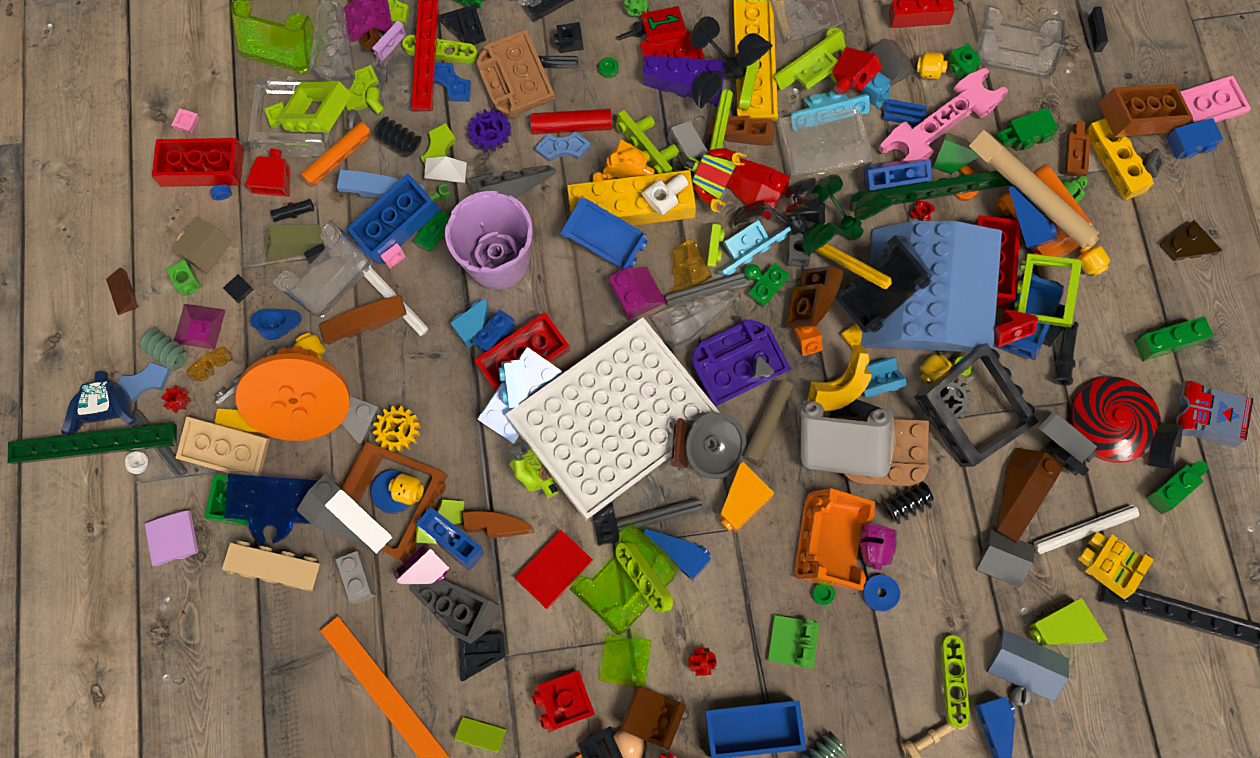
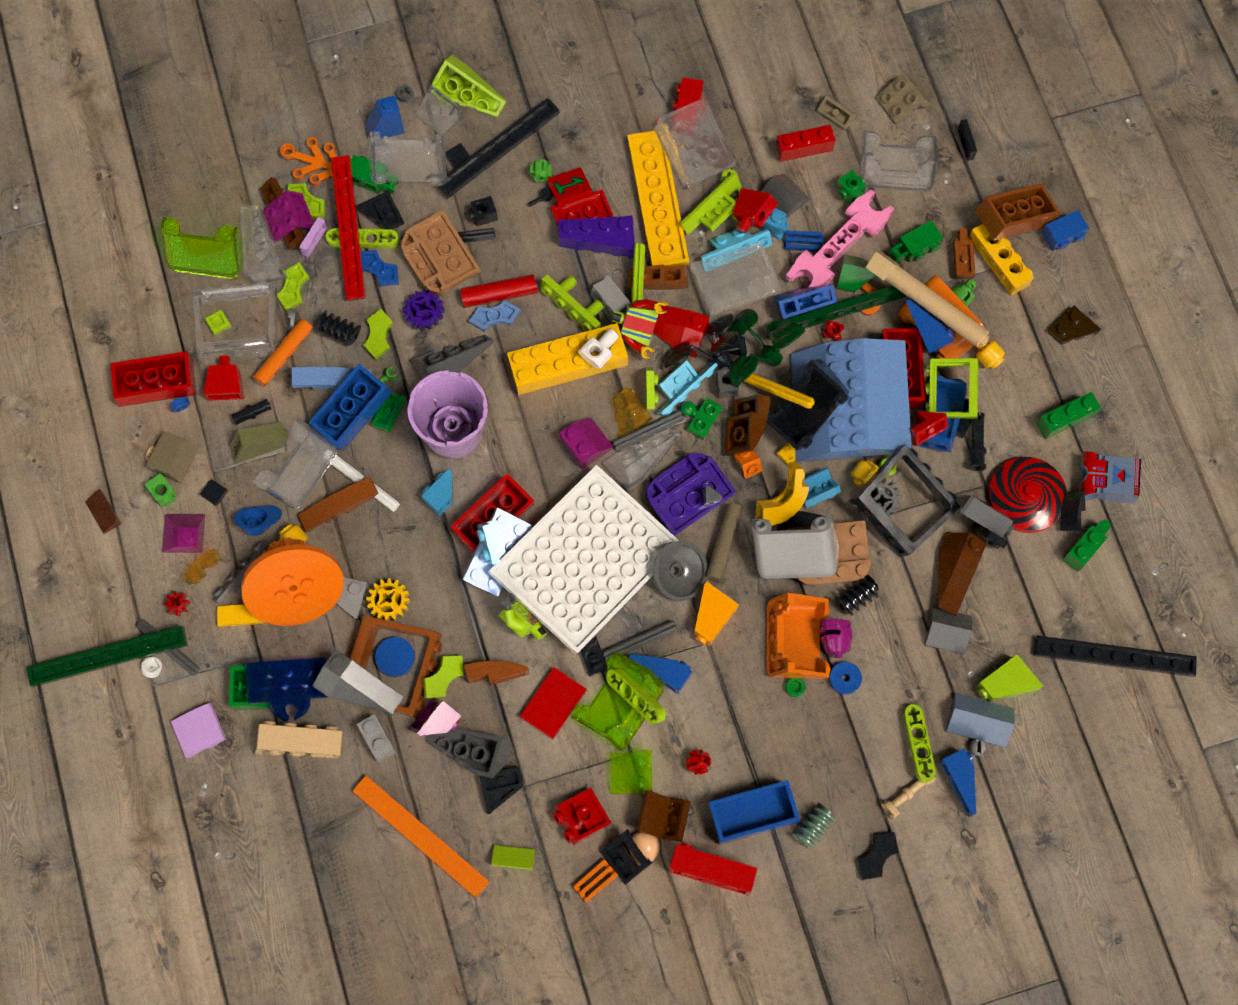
camera: 15 degrees left, 0 degrees up
(96, 403) = (104, 618): dark blue torso -> none
(150, 378) = (132, 598): medium blue tile -> none
(163, 349) = (155, 561): sand green piece -> none
(185, 121) = (130, 340): bright pink tile -> none
(222, 447) = (229, 641): tan plate -> none
(313, 253) = (283, 450): black tile -> none
(333, 98) = (276, 301): lime window -> none
(372, 99) = (308, 296): lime arm -> none
(393, 256) = (355, 441): bright pink tile -> none
(406, 489) = (408, 652): yellow head -> none
(445, 169) = (389, 353): white slope -> none
(450, 538) = (457, 690): blue slope -> none
(494, 331) = (462, 498): blue bracket -> none
(604, 233) = (548, 393): blue panel -> none
(608, 67) = (524, 234): green tile -> none
(624, 162) = (555, 324): light orange torso -> none
(678, 455) = (648, 582): copper slope -> none
(748, 85) = (658, 224): lime beam -> none
(750, 50) = (656, 206): black plant -> none
(794, 641) = (775, 732): bright green hinge -> none
(931, 65) = (822, 193): yellow head -> none
(1086, 529) = (1014, 595): white axle -> none
(1115, 564) = (1042, 621): yellow hips -> none
(1153, 162) = (1032, 258): dark grey slope -> none
(1216, 100) = (1079, 192): bright pink tile -> none

